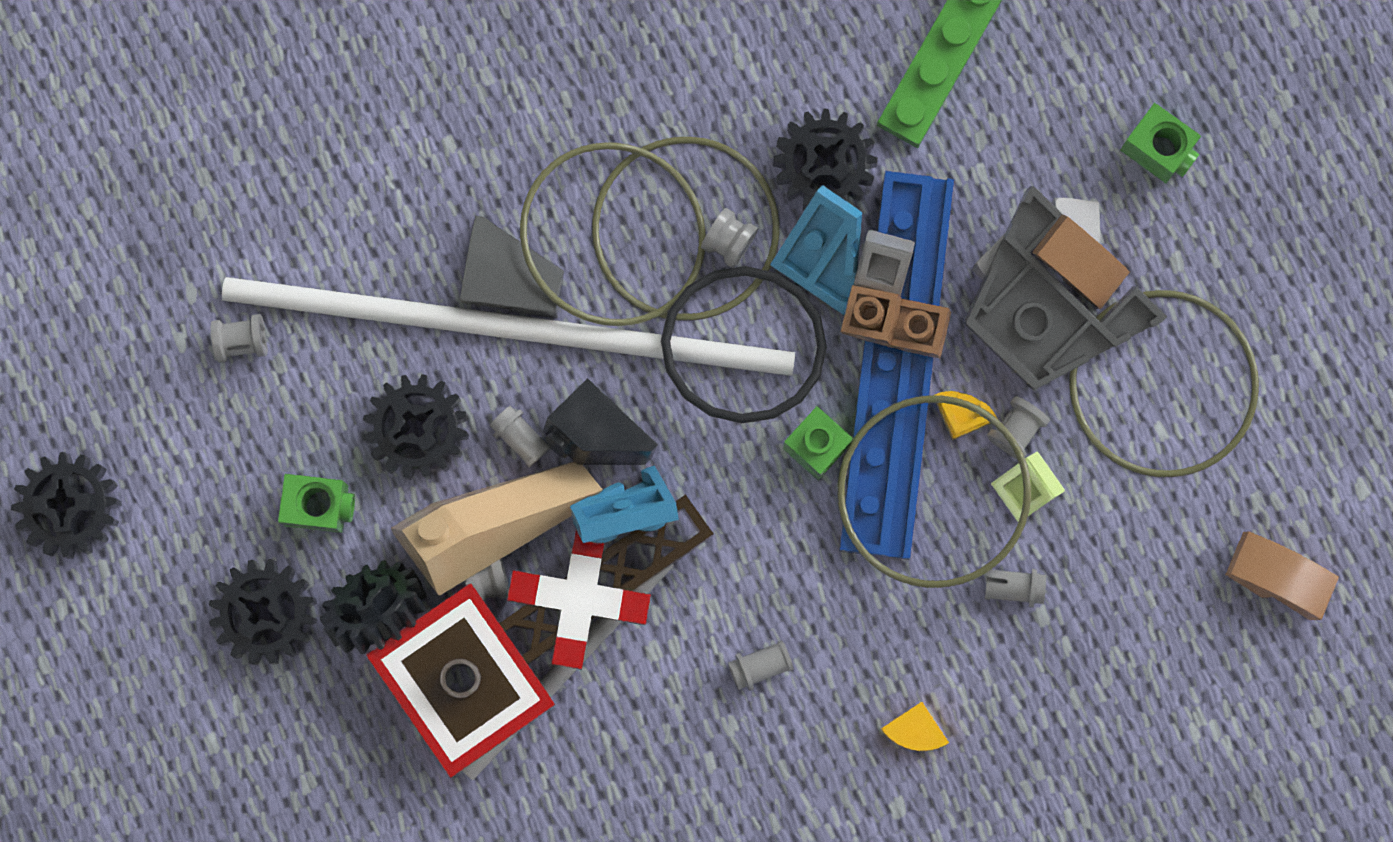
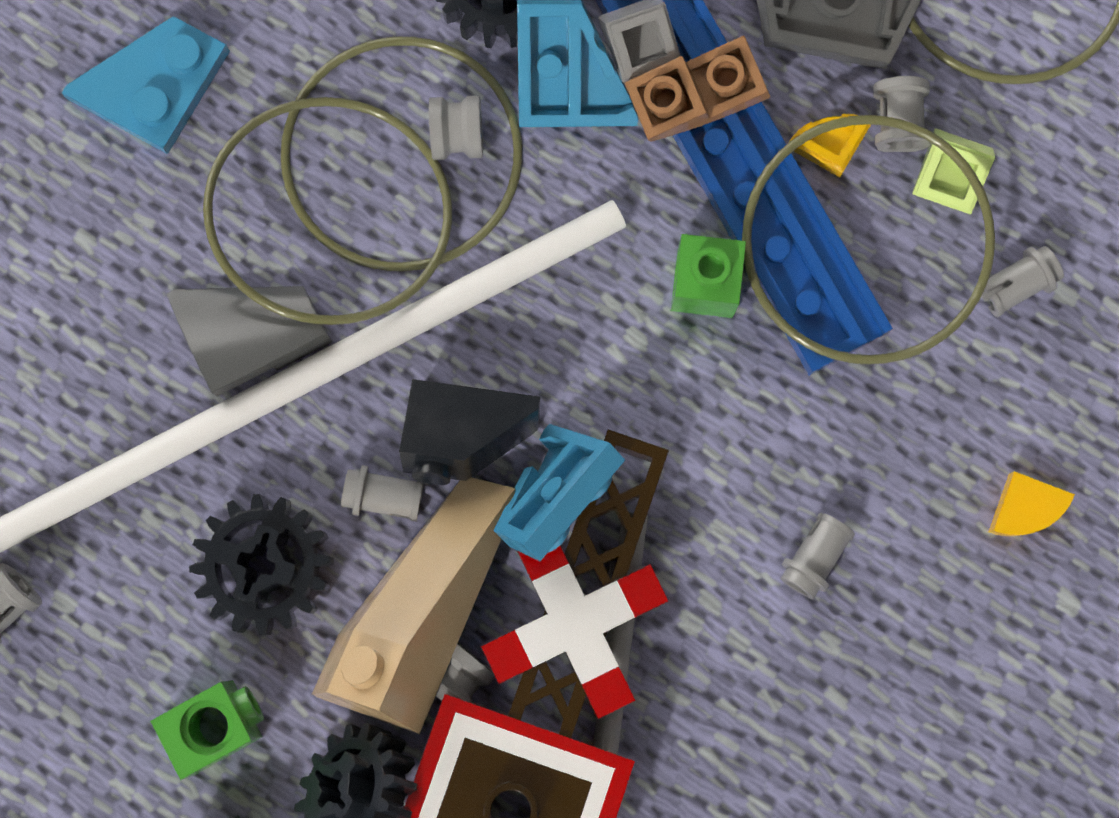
camera: 35 degrees left, 0 degrees up
(561, 73) = (152, 82): none -> dark azure wing
(725, 414) = (584, 315): black piece -> none

